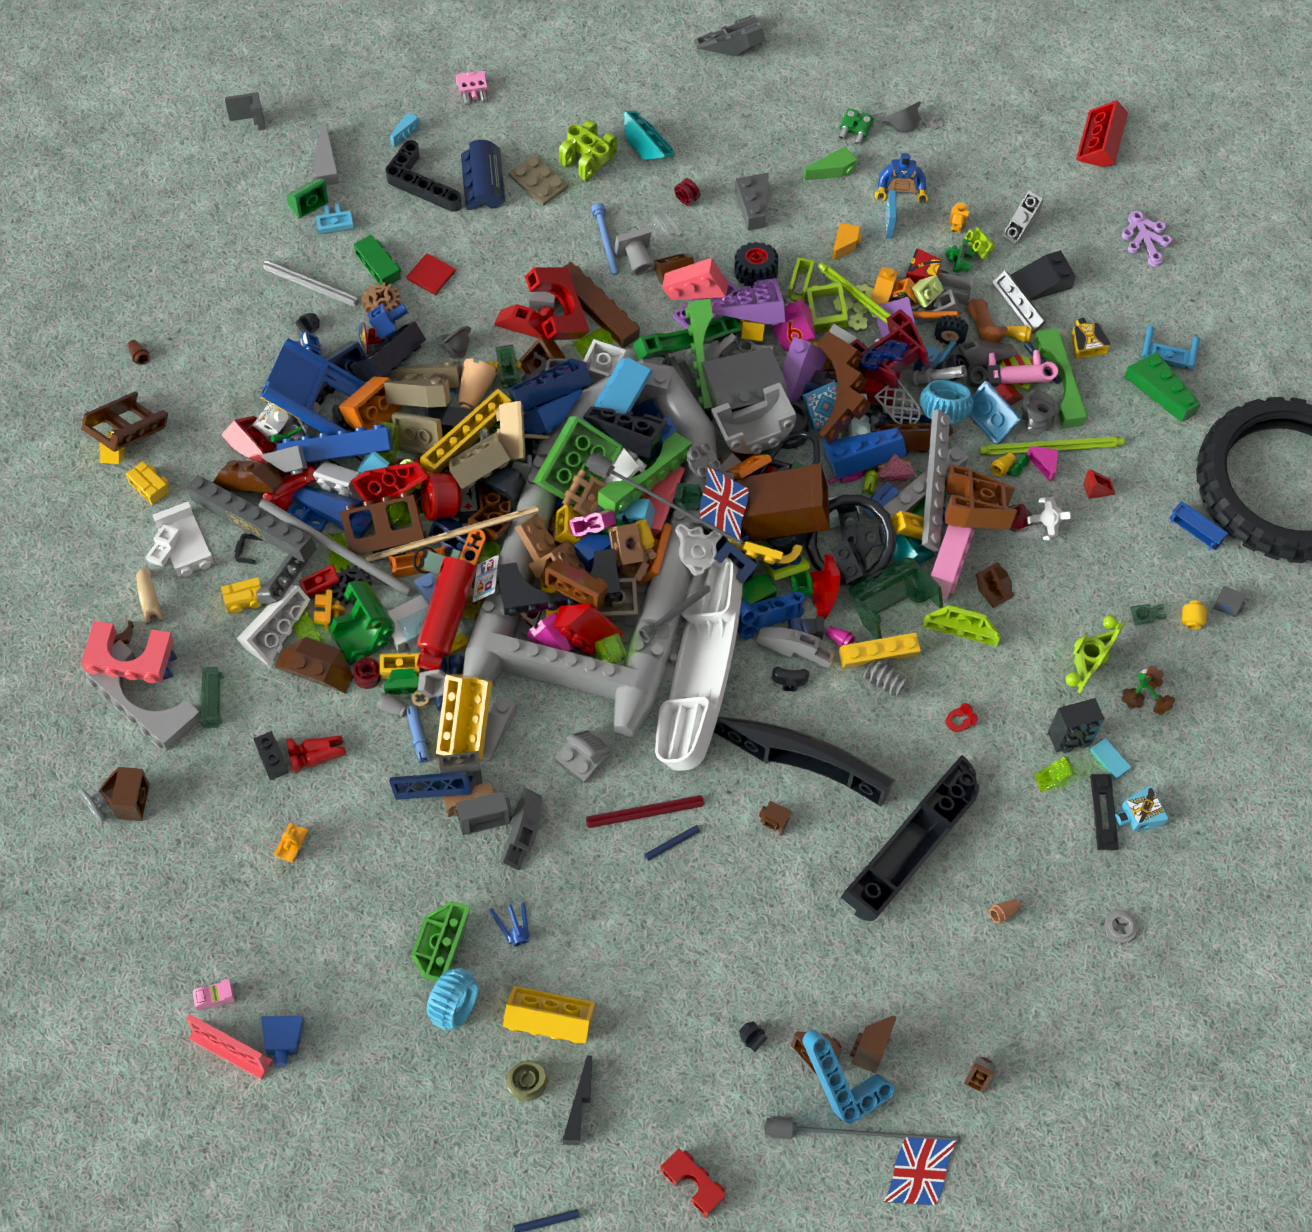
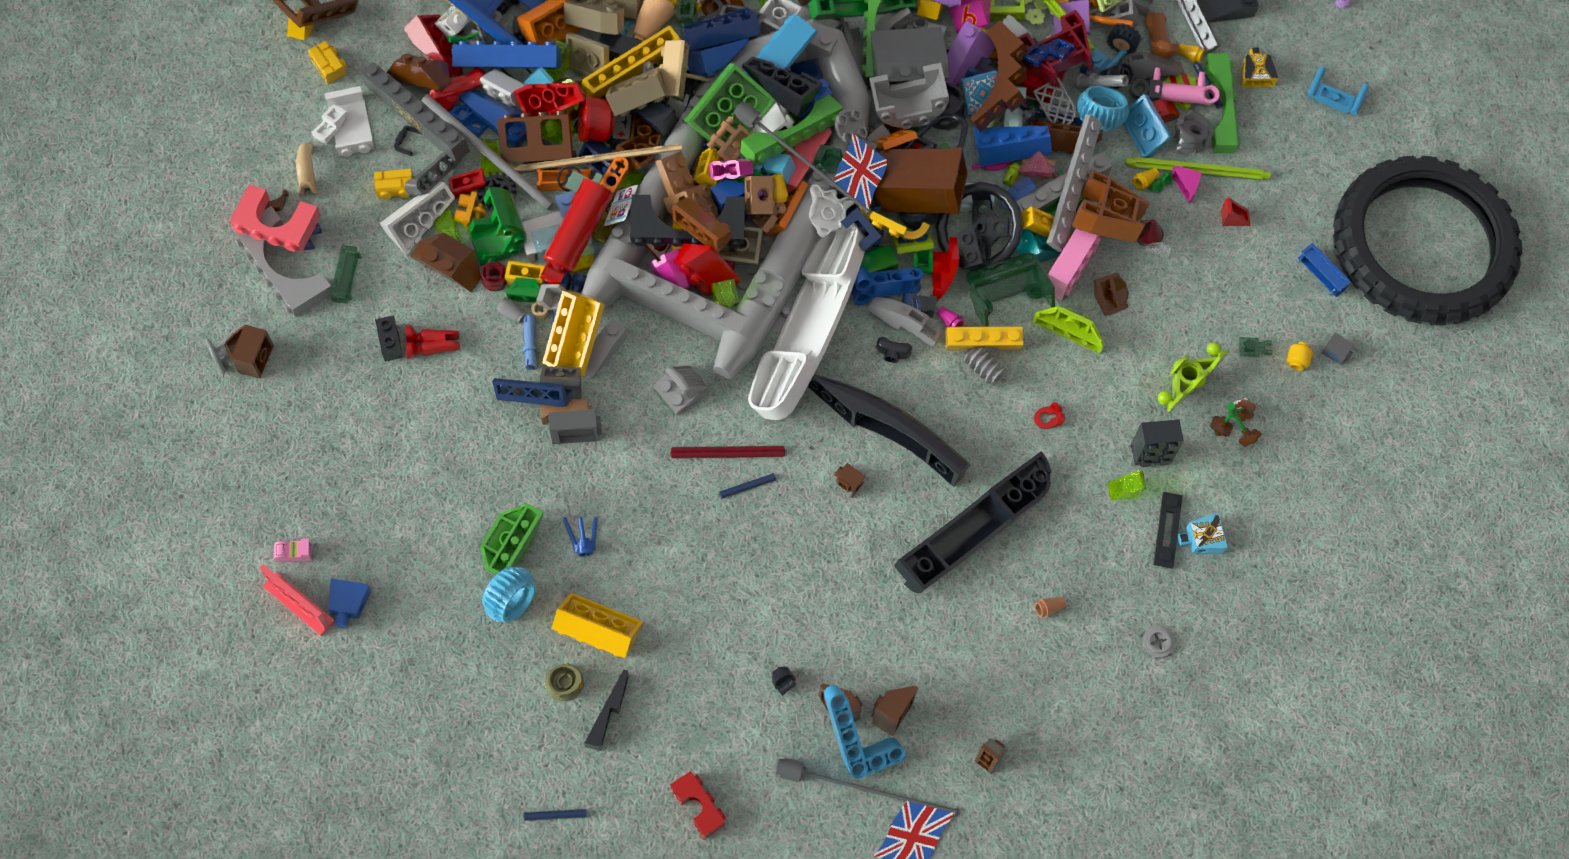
camera: 10 degrees right, 5 degrees up
(288, 460) = (459, 62): light grey slope -> none
(291, 842) = (391, 422): light orange hips -> none
(524, 829) = (609, 449): dark grey slope -> none
(648, 632) = (763, 282): dark grey piece -> none
(1050, 517) = (1180, 237): white piece -> none
(1110, 758) = (1185, 480): medium azure tile -> none
(1163, 386) = (1321, 127): green wedge -> none

